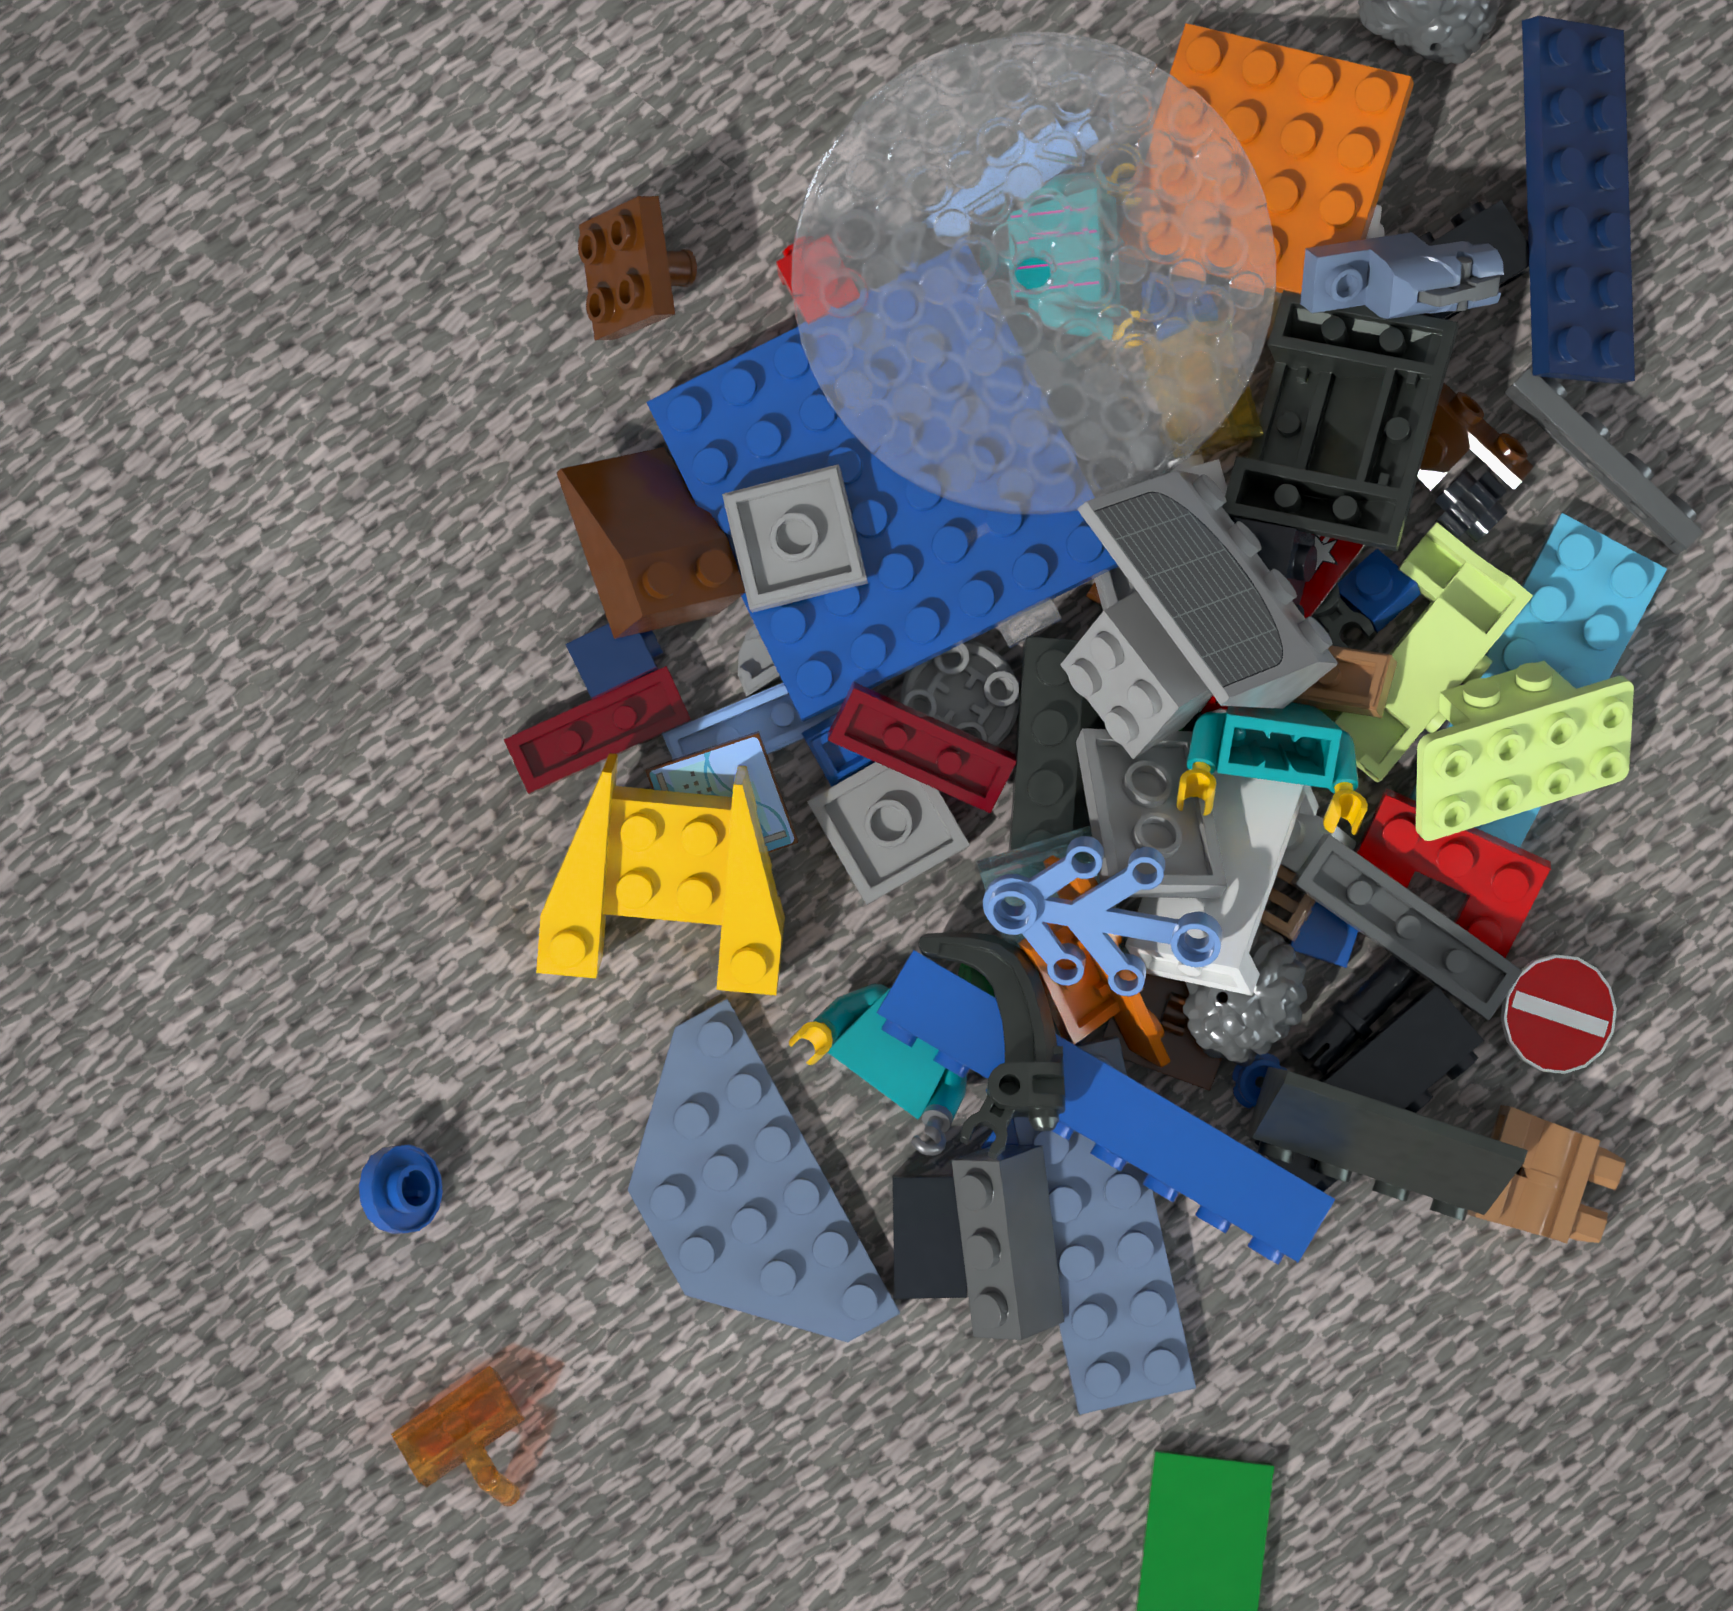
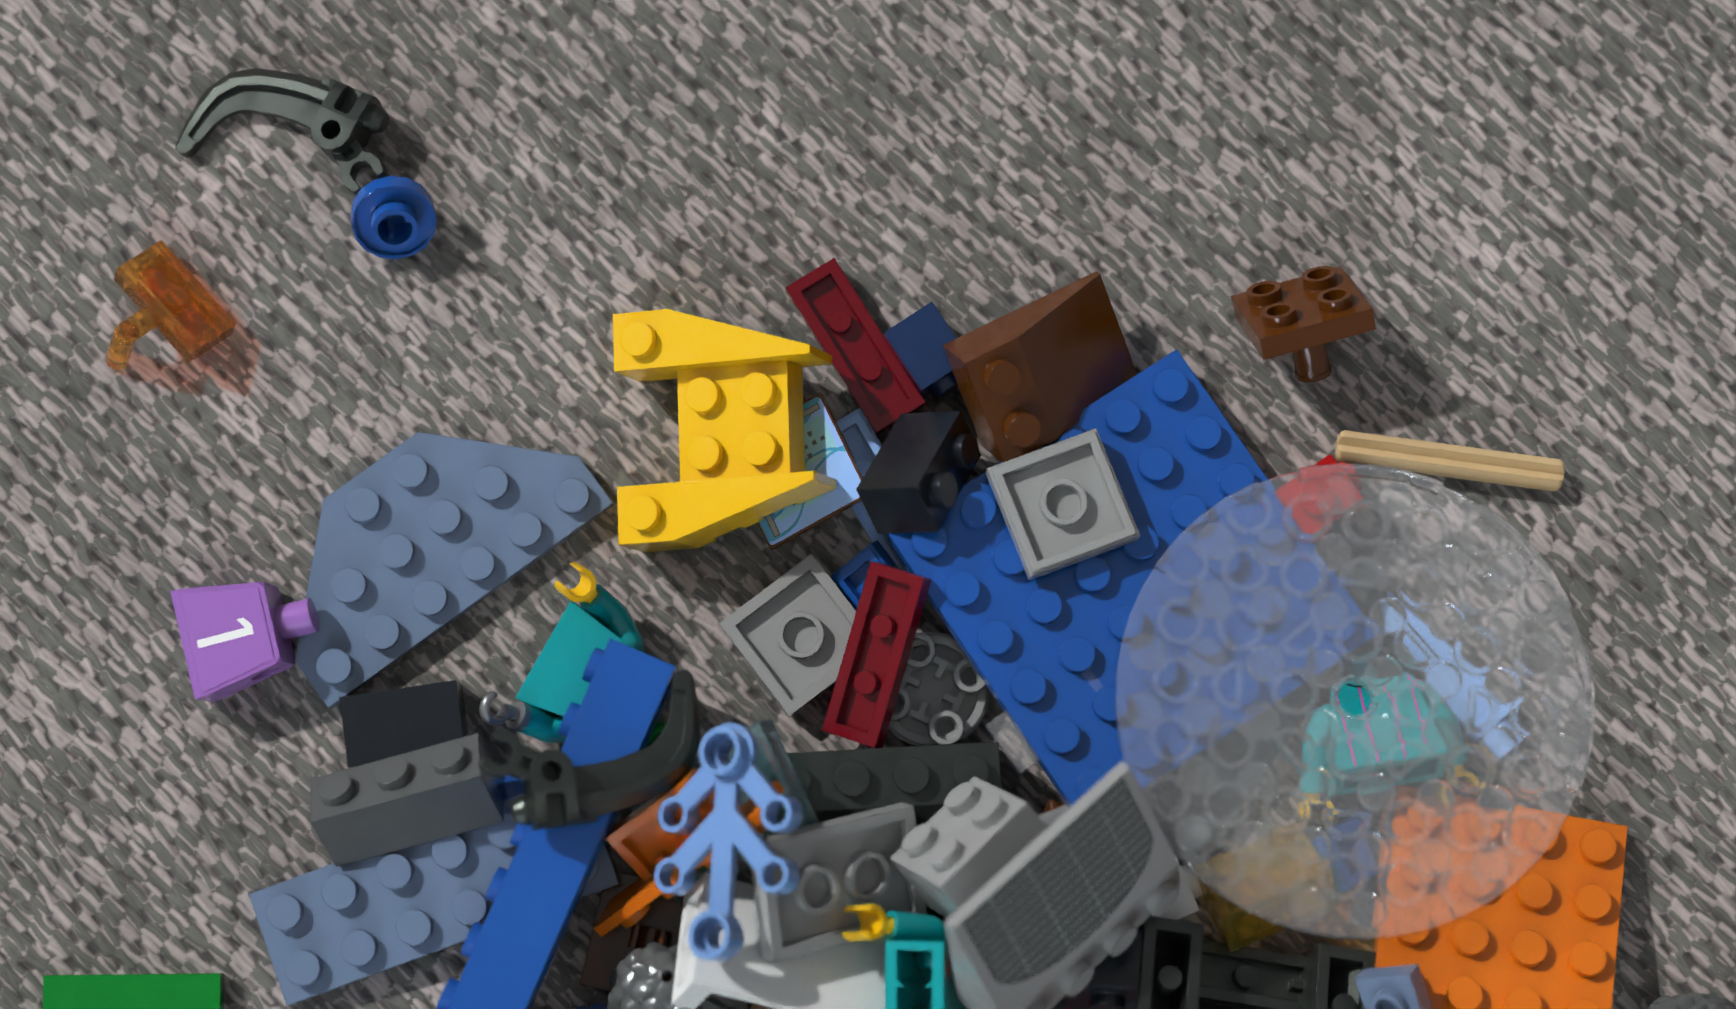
camera: 80 degrees right, 5 degrees down
(279, 1237) = (335, 112): none -> pearl dark grey piece
(741, 679) = (919, 472): none -> black brick
(794, 144) = (1450, 460): none -> tan axle
(815, 1396) = (238, 635): none -> medium lavender torso

